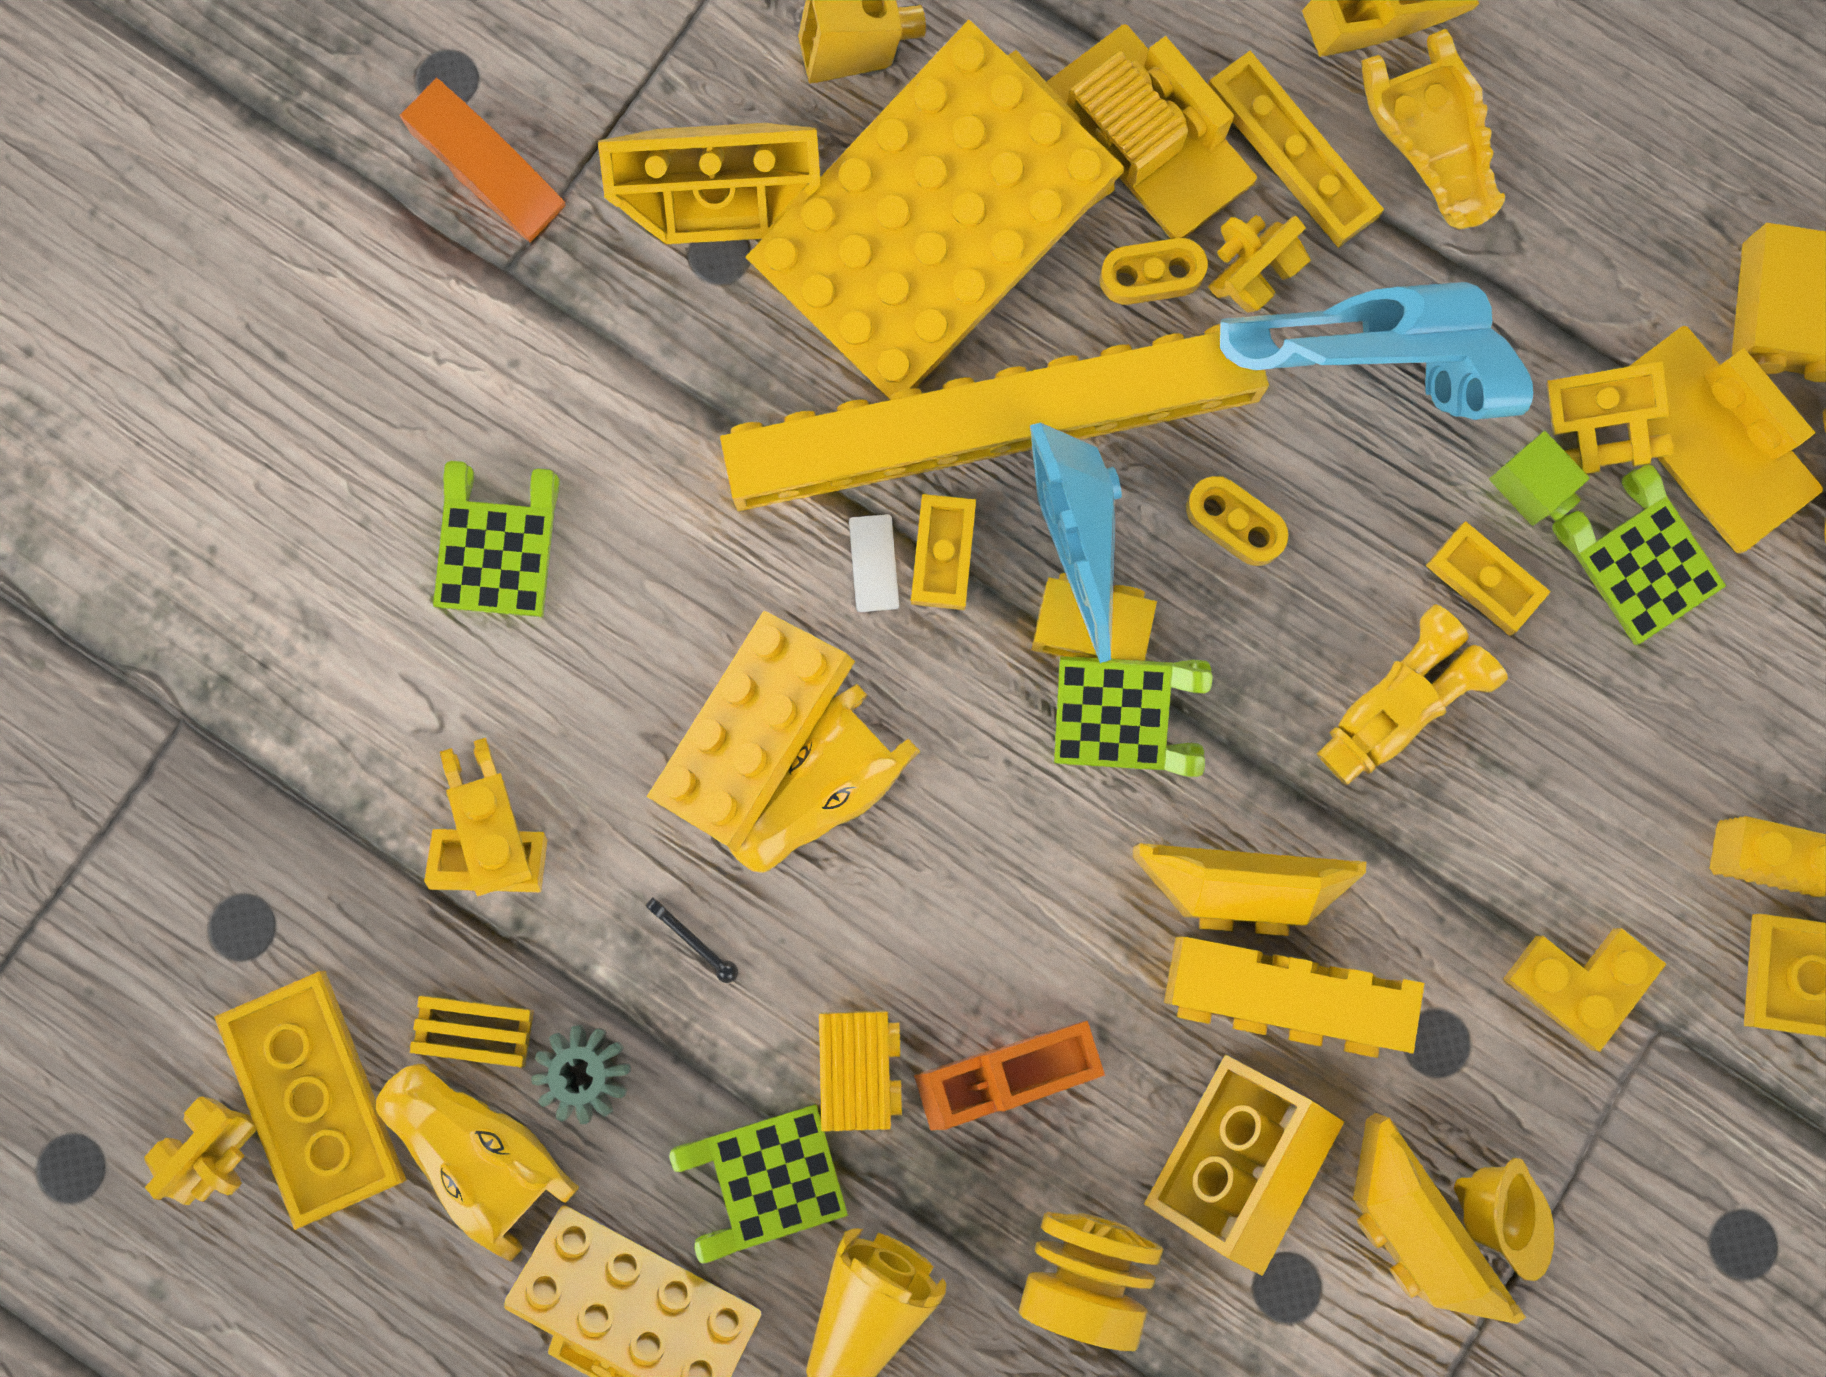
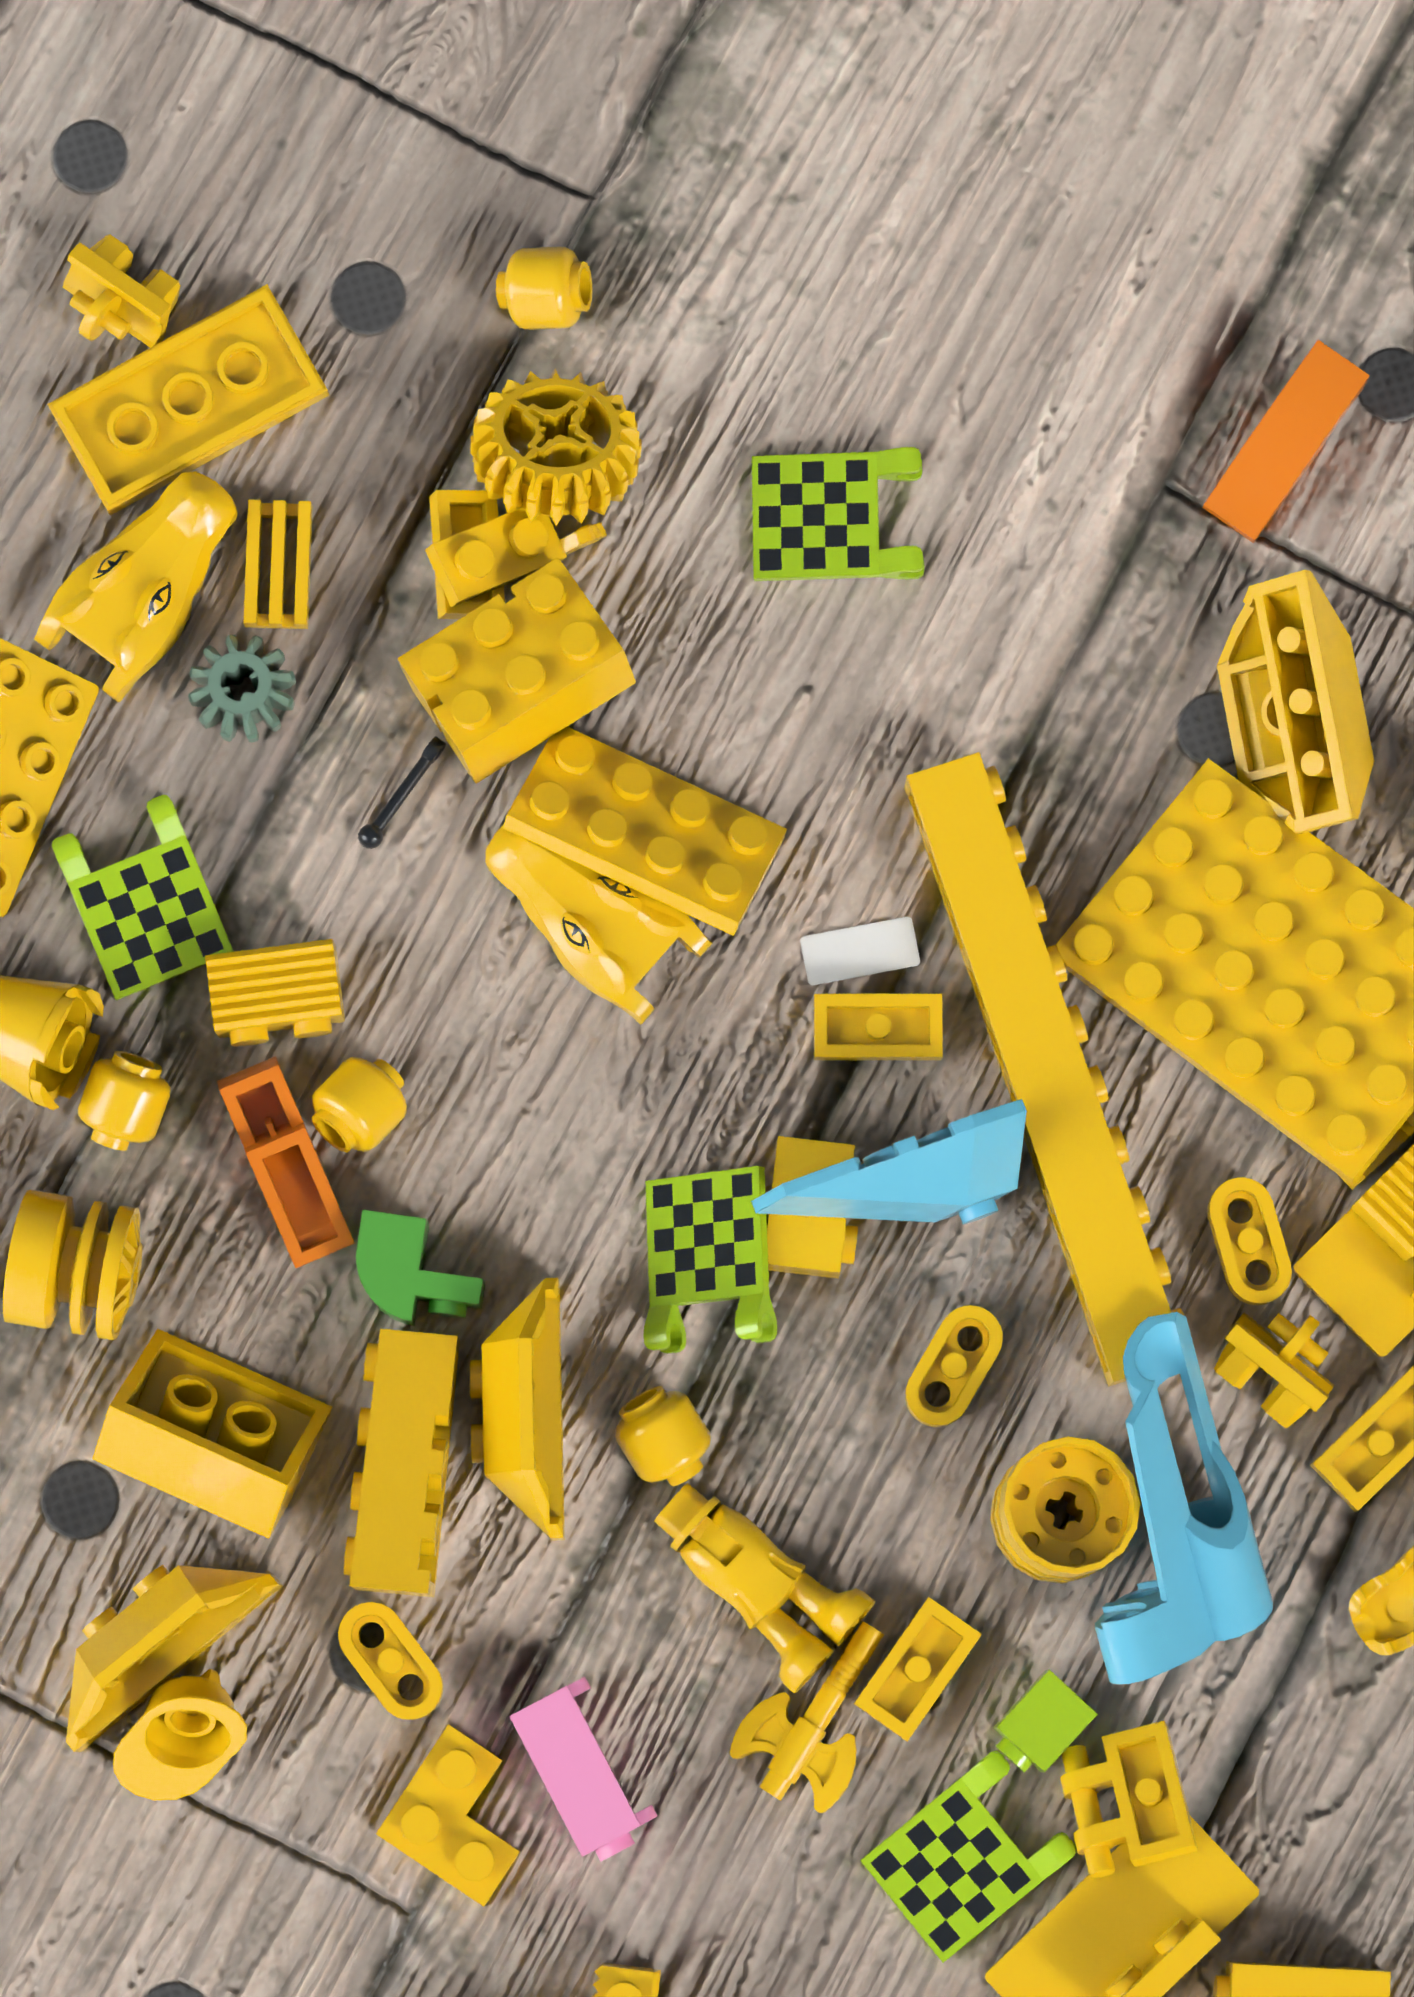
camera: 85 degrees right, 0 degrees up
(255, 767) = (544, 288): none -> yellow head
(400, 770) = (557, 461): none -> yellow gear
(596, 825) = (517, 670): none -> yellow piece
(941, 1216) = (124, 1100): none -> yellow head
(966, 1004) = (359, 1104): none -> yellow head
(1119, 988) = (392, 1272): none -> bright green brick
(1278, 769) = (662, 1436): none -> yellow head
(1391, 414) = (1098, 1494): none -> yellow wheel
(1452, 1028) = (390, 1661): none -> yellow plate
(1542, 684) = (799, 1746): none -> yellow piece
(1559, 871) = (578, 1773): none -> bright pink brick

